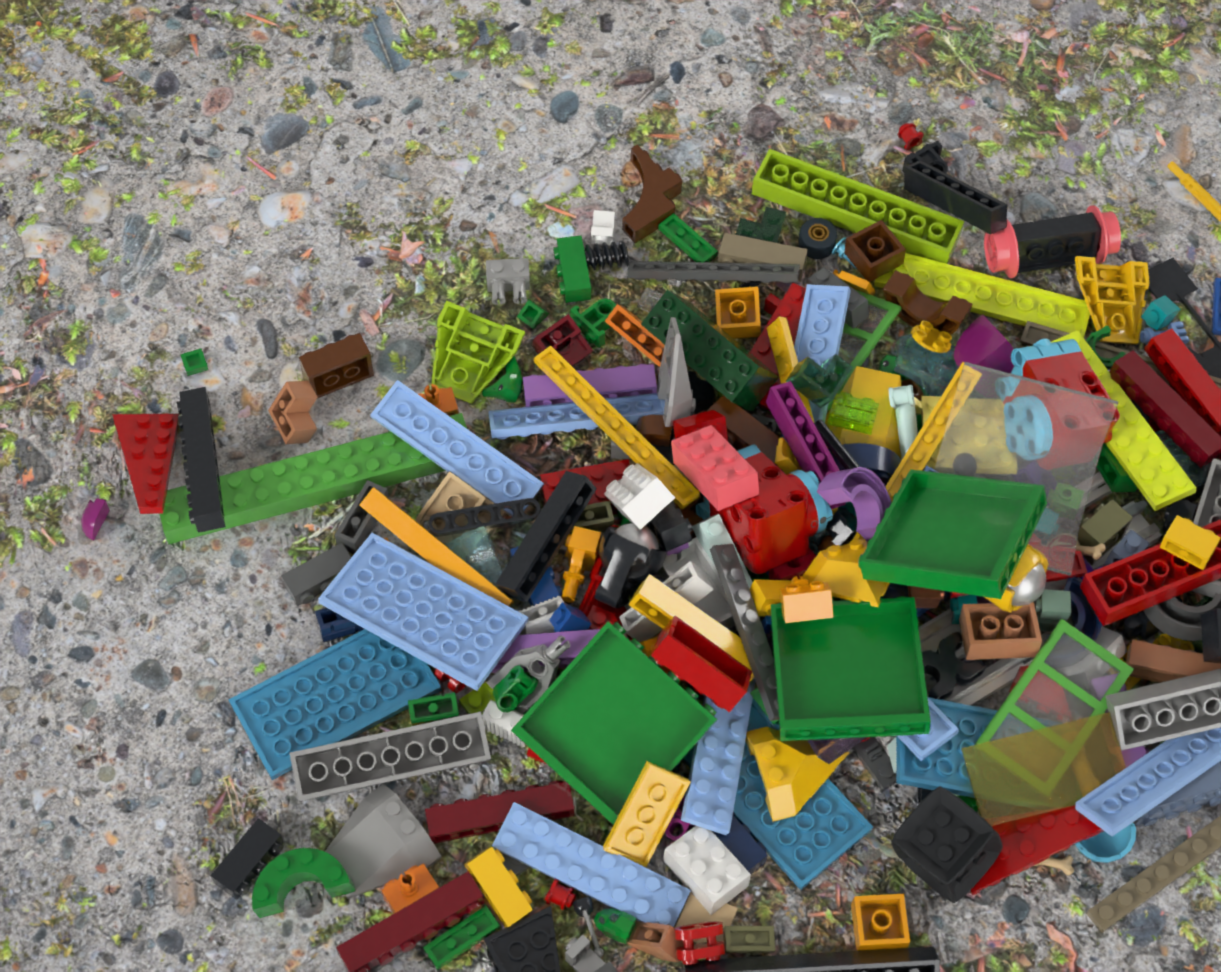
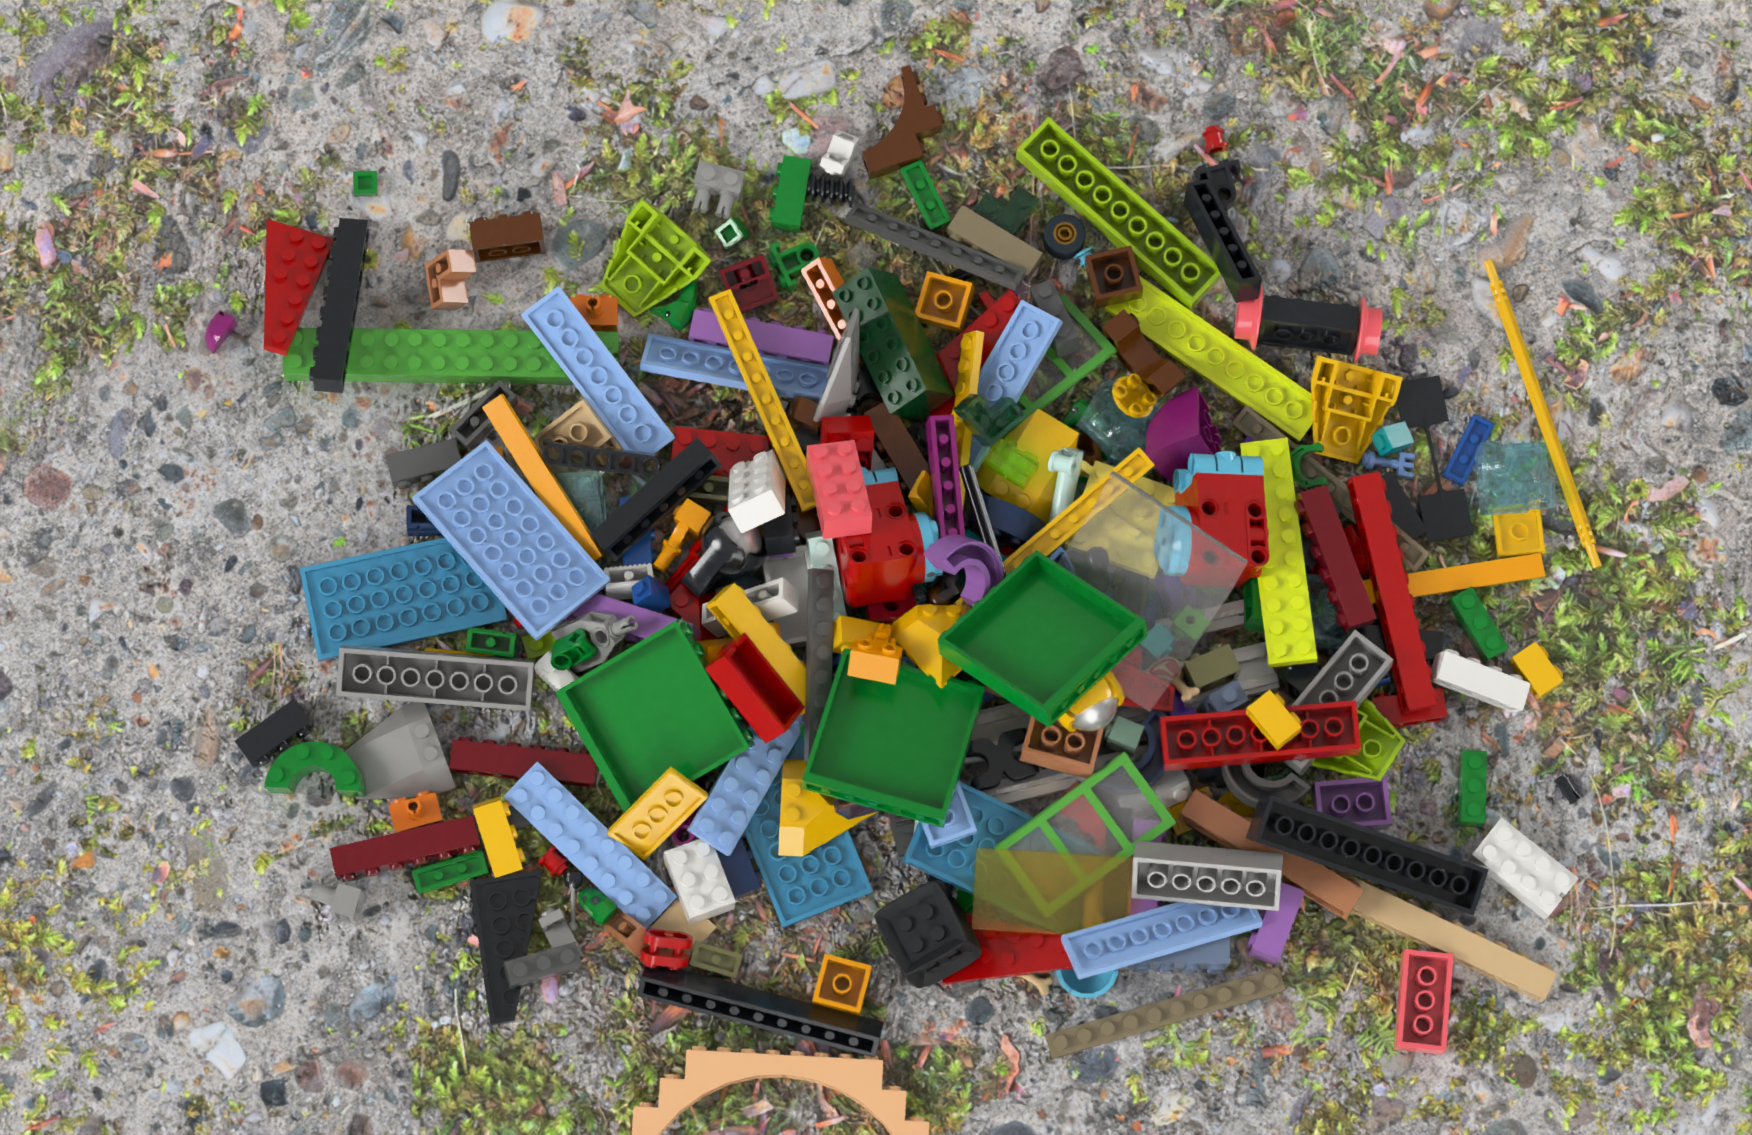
camera: 15 degrees right, 15 degrees up
(855, 282) = (1079, 305): light orange tile -> none

